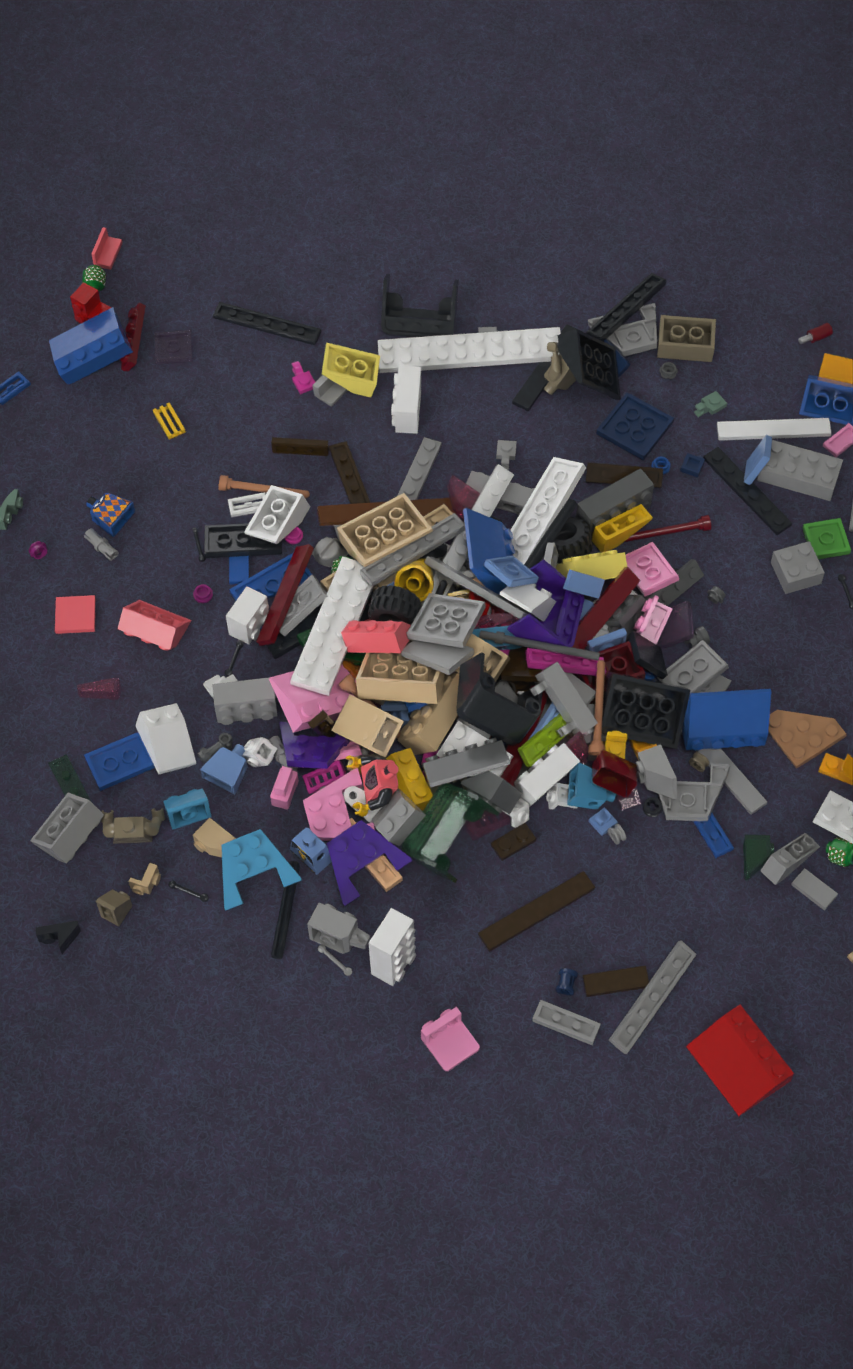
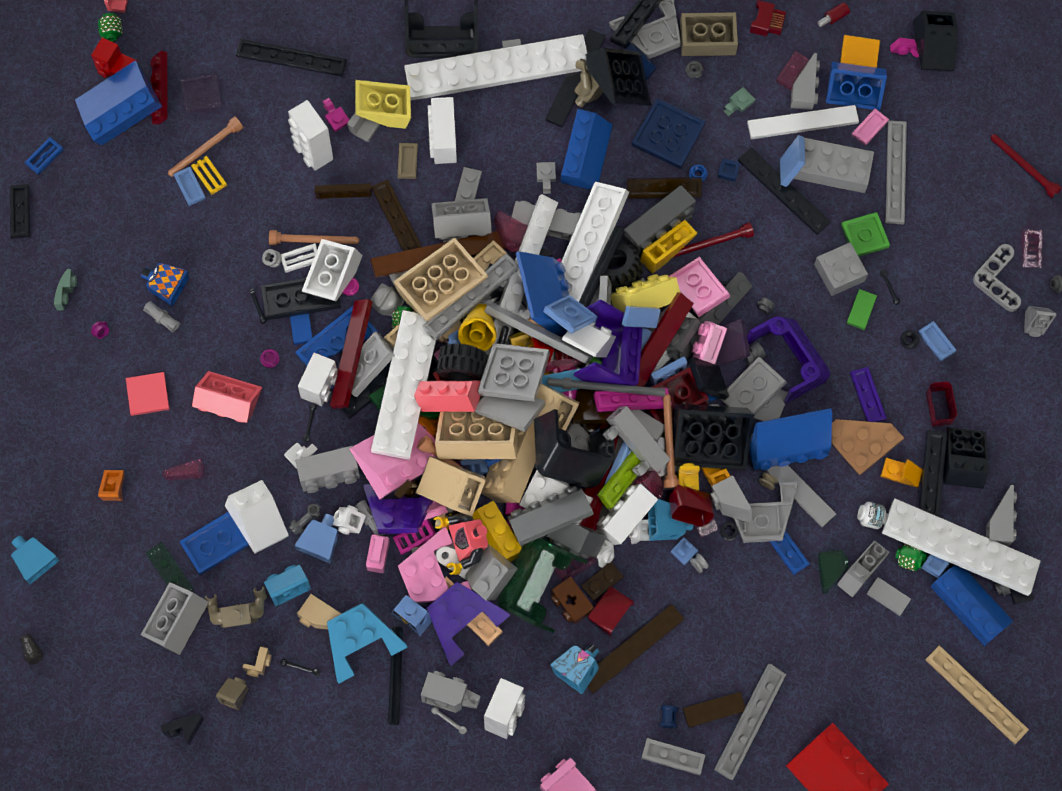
camera: 10 degrees left, 10 degrees up
(23, 696) = (111, 485): none -> orange slope
(148, 429) = (189, 186): none -> medium blue tile
(200, 378) = (233, 126): none -> nougat piece
(223, 504) = (276, 260): none -> light grey bush
(273, 388) = (310, 135): none -> white brick
(368, 426) = (407, 160): none -> dark tan tile
(414, 481) = (461, 218): none -> light grey slope
(475, 920) = (577, 667): none -> dark azure torso
(478, 845) = (570, 590): none -> reddish brown brick
(516, 868) = (610, 610): none -> dark red piece
(549, 431) = (586, 150): none -> blue slope
(748, 332) = (768, 19): none -> dark red piece
(756, 656) = (813, 369): none -> dark purple windscreen
(769, 380) = (792, 70): none -> clear pink plate
(778, 394) = (803, 90): none -> light grey slope
(804, 806) = (872, 515): none -> head
(813, 690) = (868, 395): none -> dark purple tile
(815, 609) = (861, 309): none -> bright green tile

